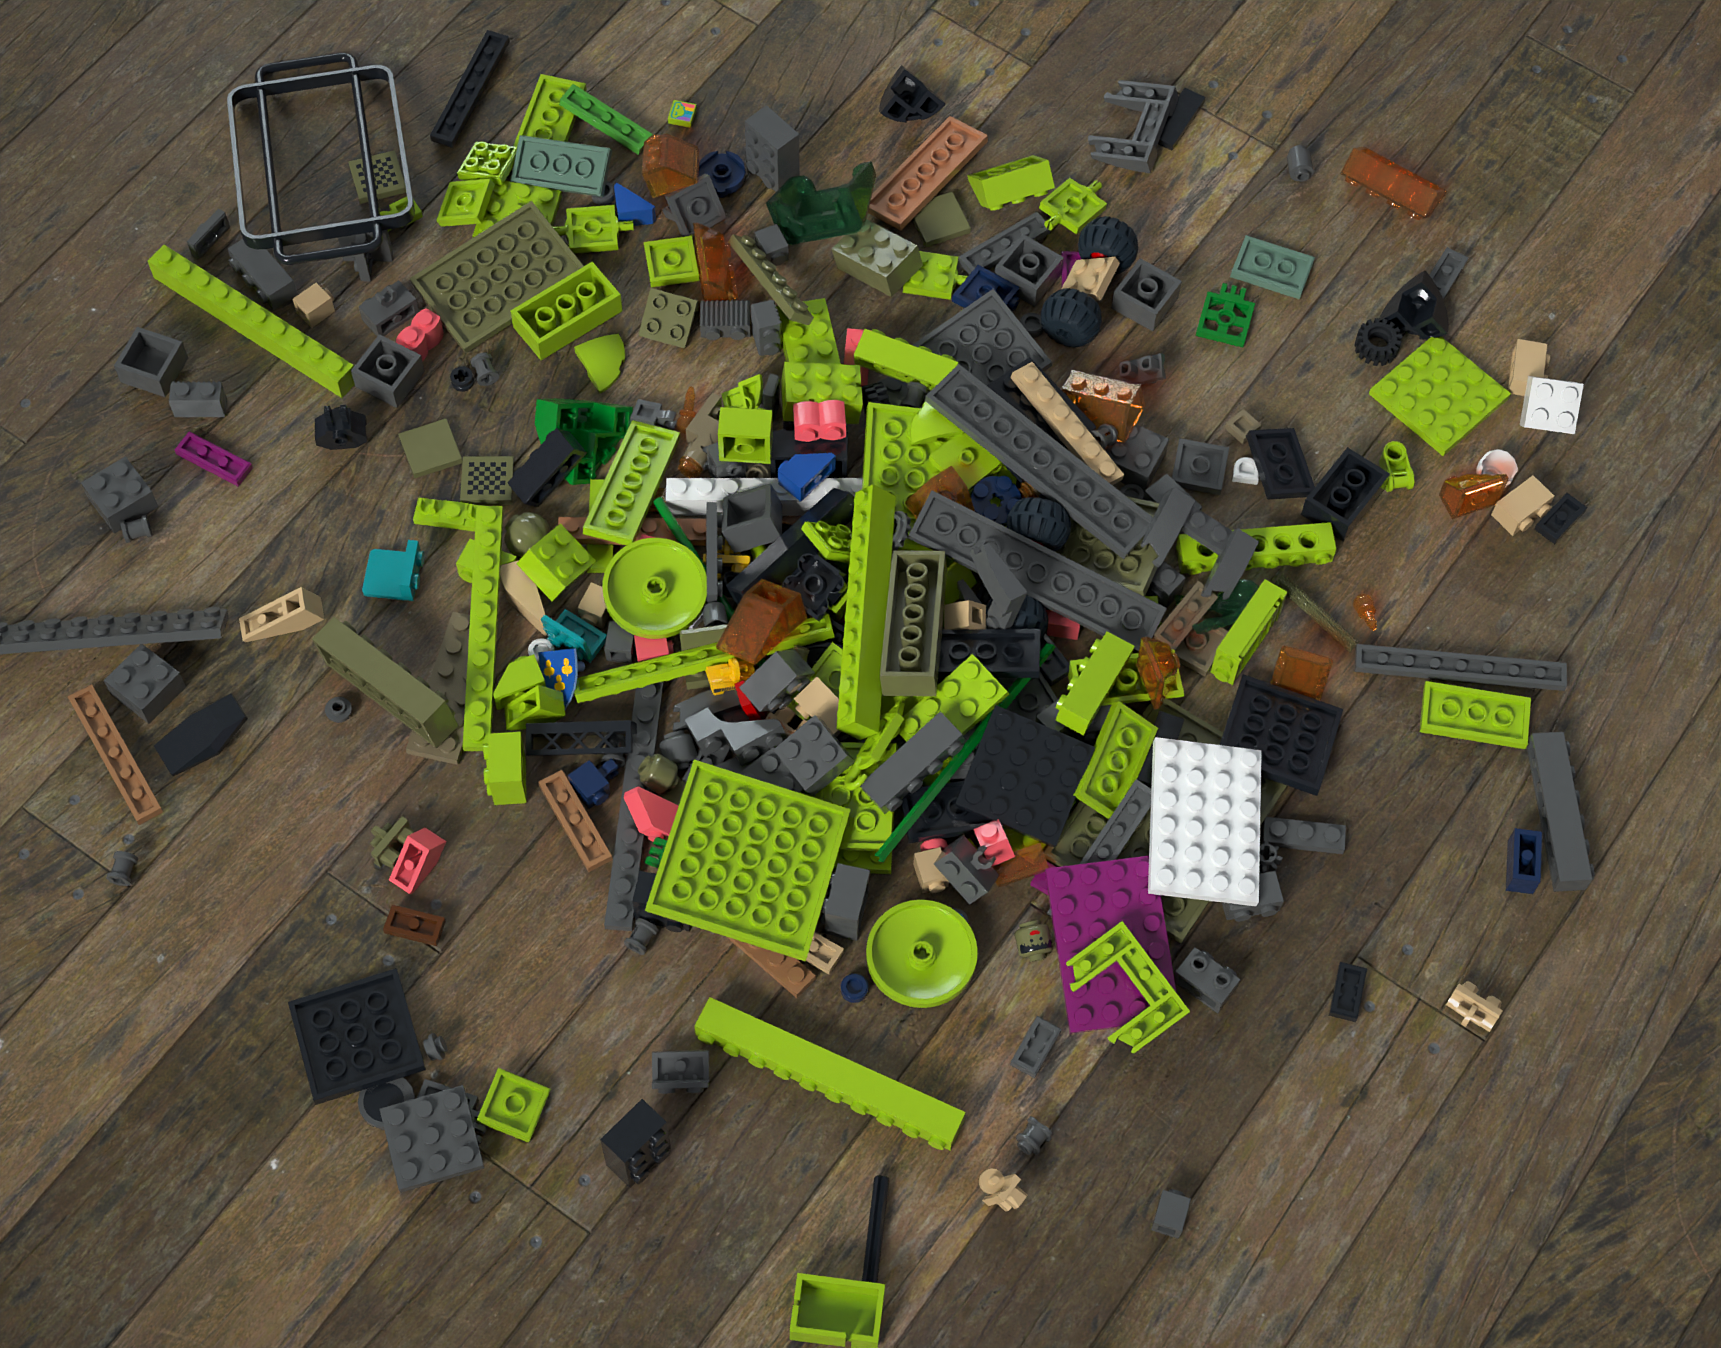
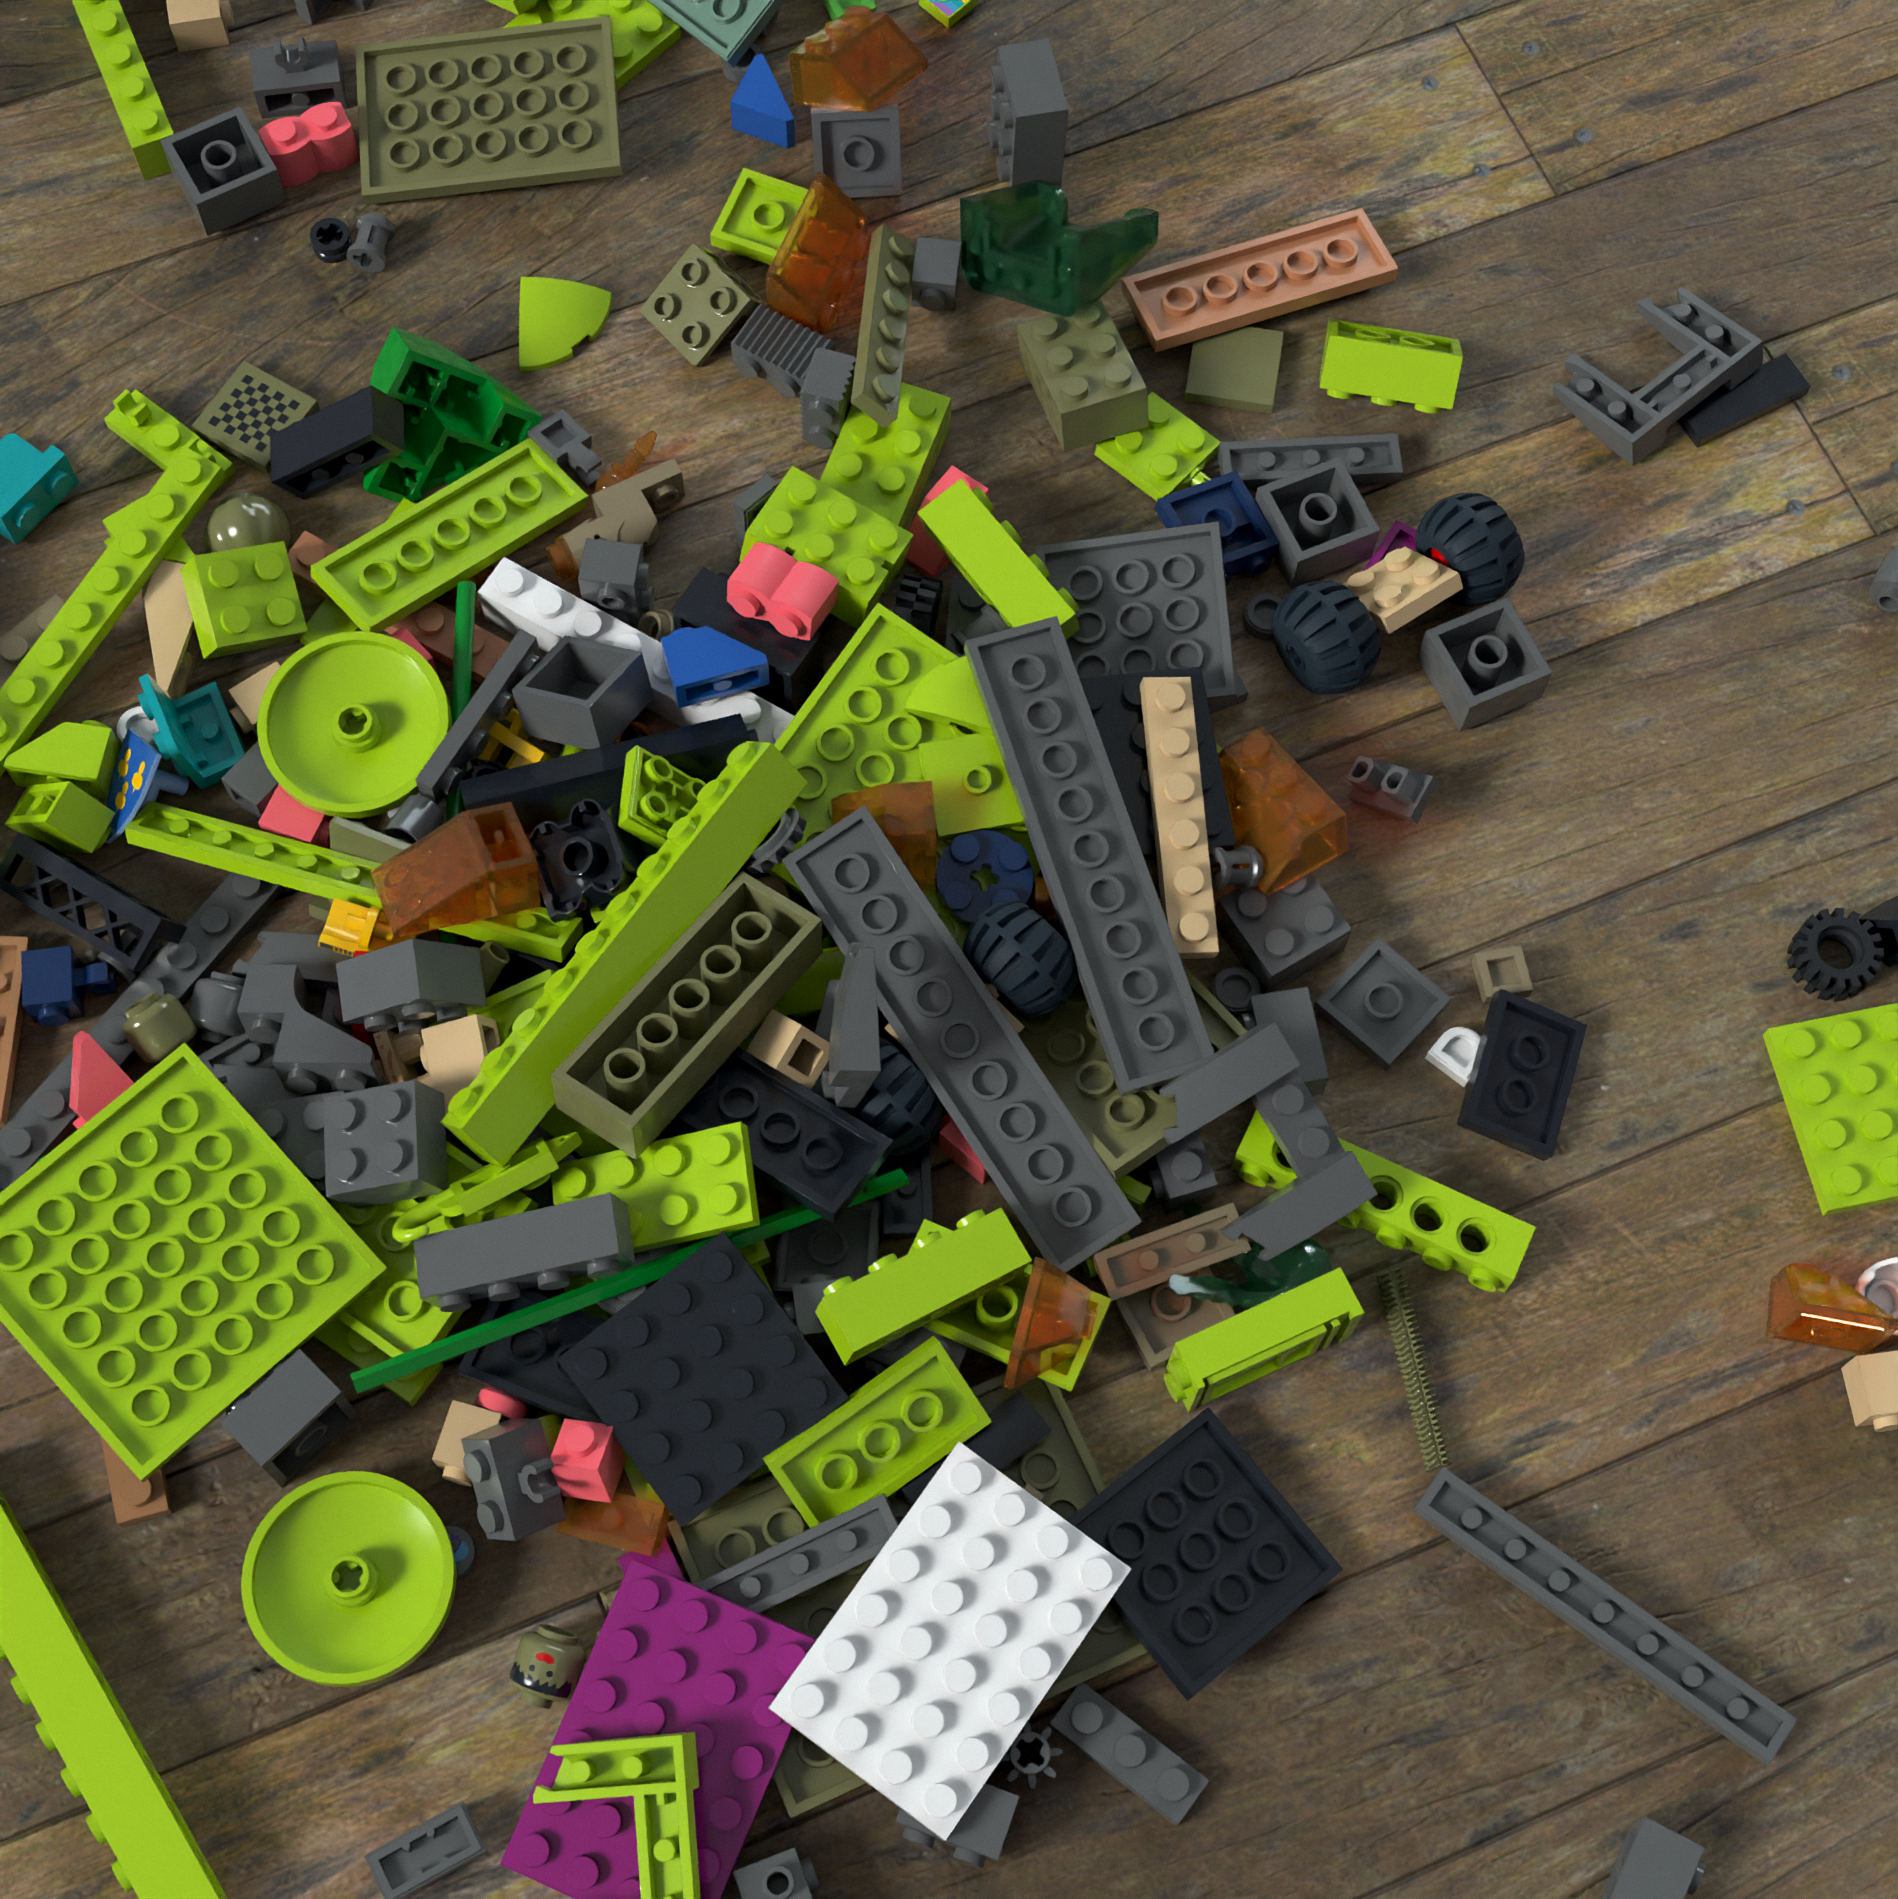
camera: 30 degrees right, 5 degrees up
(340, 428) = (93, 221): black hinge -> none
(430, 448) = (209, 322): olive tile -> none
(566, 310) = (548, 214): lime brick -> none
(593, 229) = (682, 109): lime plate -> none
(722, 162) = (937, 141): dark blue plate -> none
(745, 396) = (706, 503): lime brick -> none
(745, 435) = (639, 550): lime brick -> none
(824, 953) = (204, 1475): tan plate -> none
(854, 988) = (217, 1567): dark blue tile -> none
(908, 98) = (1315, 148): black brick -> none
(1073, 205) = (1464, 453): lime plate -> none
(1230, 301) = (1624, 747): green piece -> none
(1272, 267) = (1737, 729): sand green tile -> none
(1302, 672) = (1305, 1467): clear orange slope -> none
(1345, 493) = (1597, 1190): black brick -> none
(1365, 608) = (1506, 1404): clear orange bar -> none
(1400, 471) = (1716, 1201): lime piece -> none
(1475, 715) = (1572, 1717): lime plate -> none

